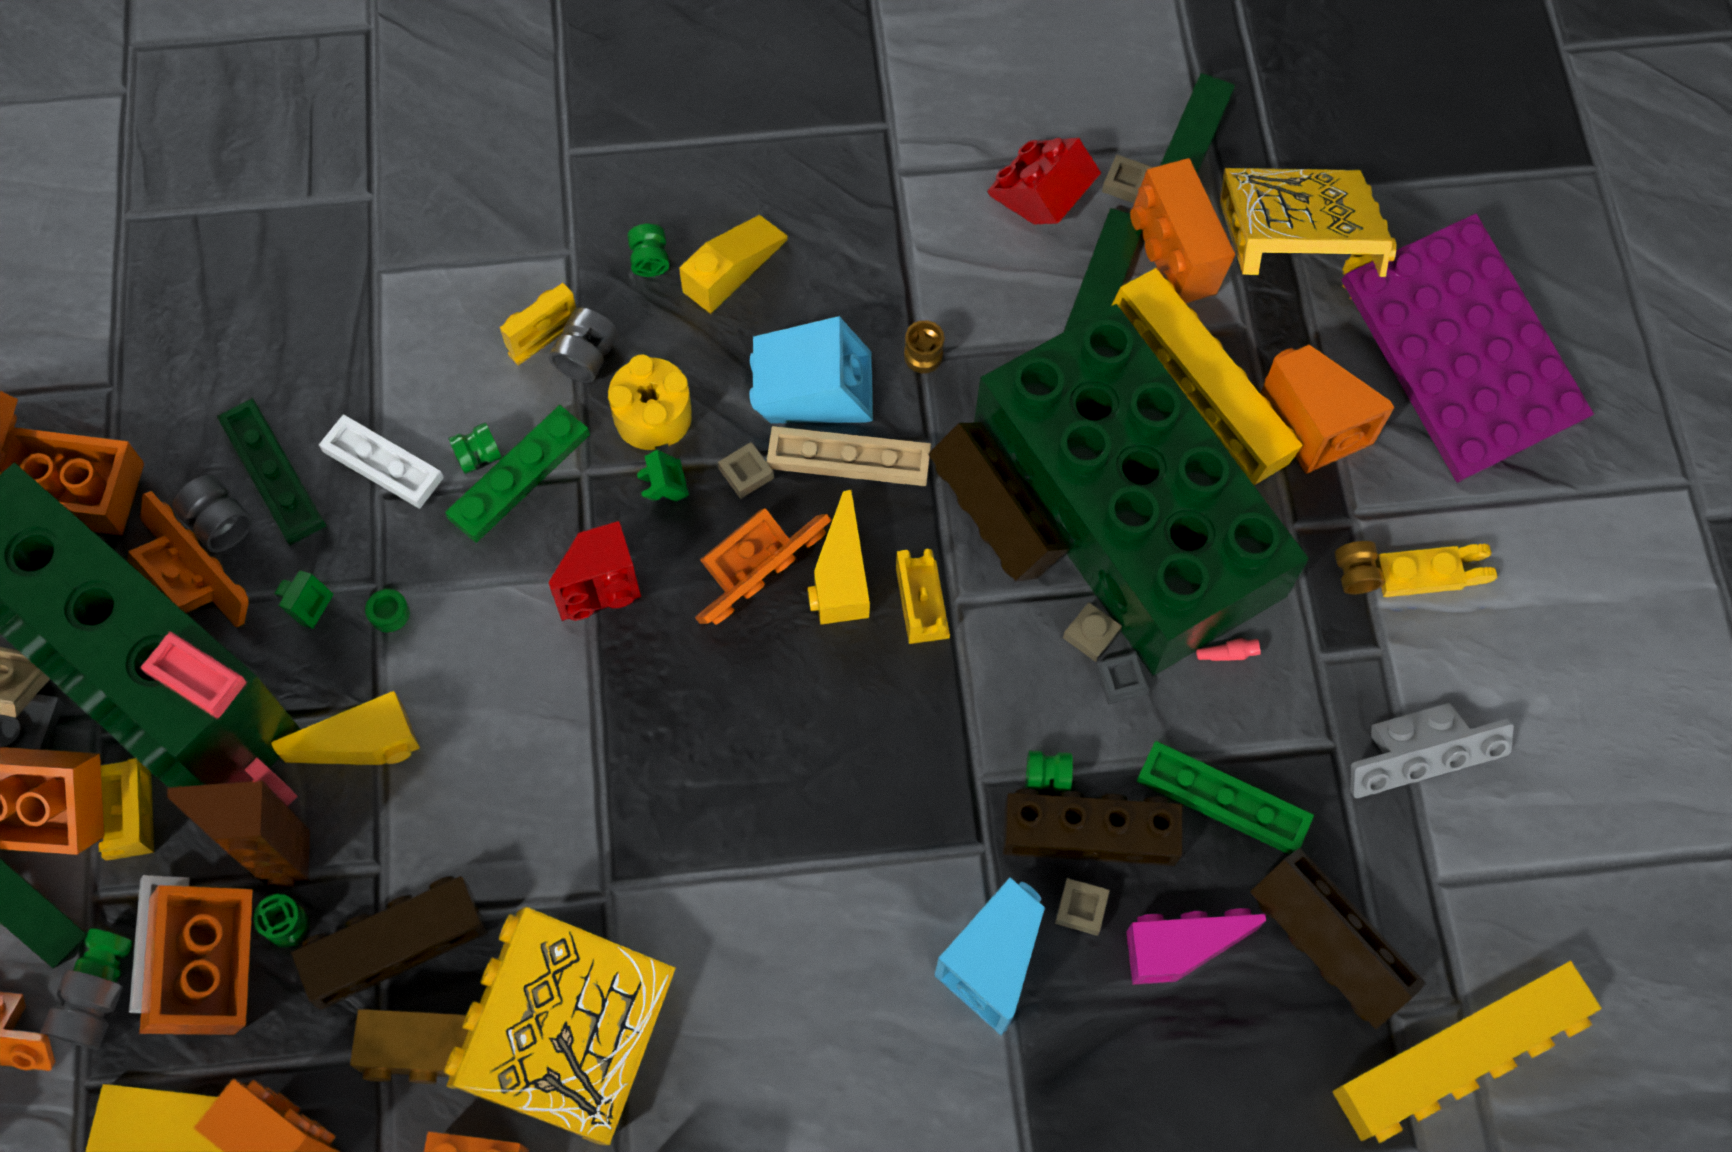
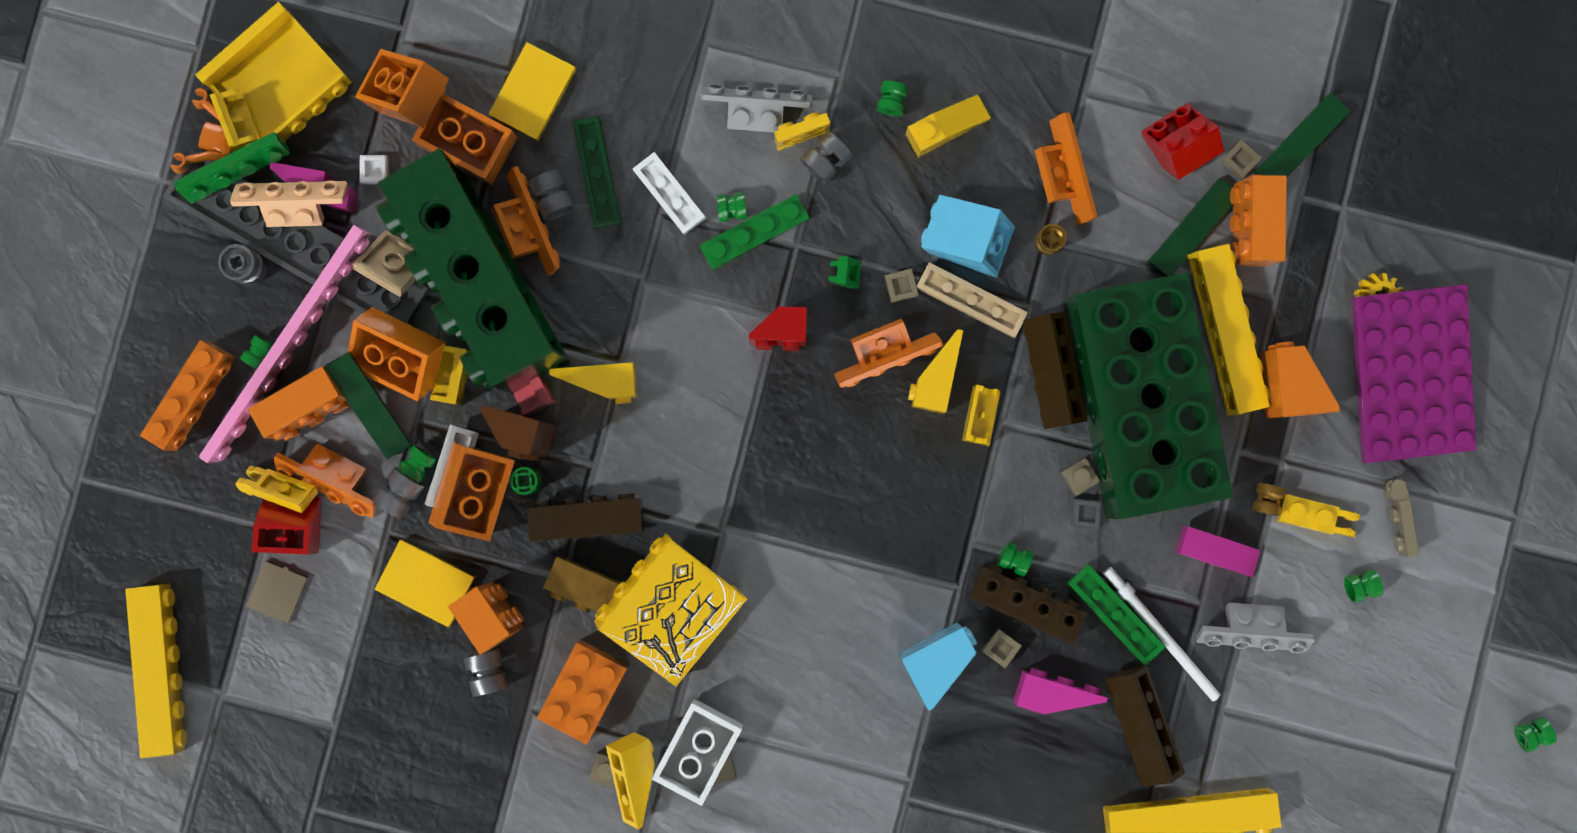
camera: 25 degrees right, 20 degrees up
(151, 397) = (532, 91): none -> yellow tile
(193, 675) = (515, 338): coral tile -> none
(304, 598) = (593, 274): green tile -> none
(387, 610) = (643, 299): green tile -> none
(467, 323) = (755, 109): none -> light grey bracket
(650, 402) = (855, 200): yellow brick -> none
(909, 261) = (1064, 170): none -> orange bracket
(1226, 762) = (1126, 592): none -> white bar
(1231, 651) = (1164, 521): coral piece -> none
(1303, 215) = (1347, 243): yellow panel -> none
(1322, 659) = (1217, 551): none -> dark pink slope
(1545, 527) = (1402, 516): none -> dark tan hinge
(1545, 631) = (1363, 586): none -> green wheel

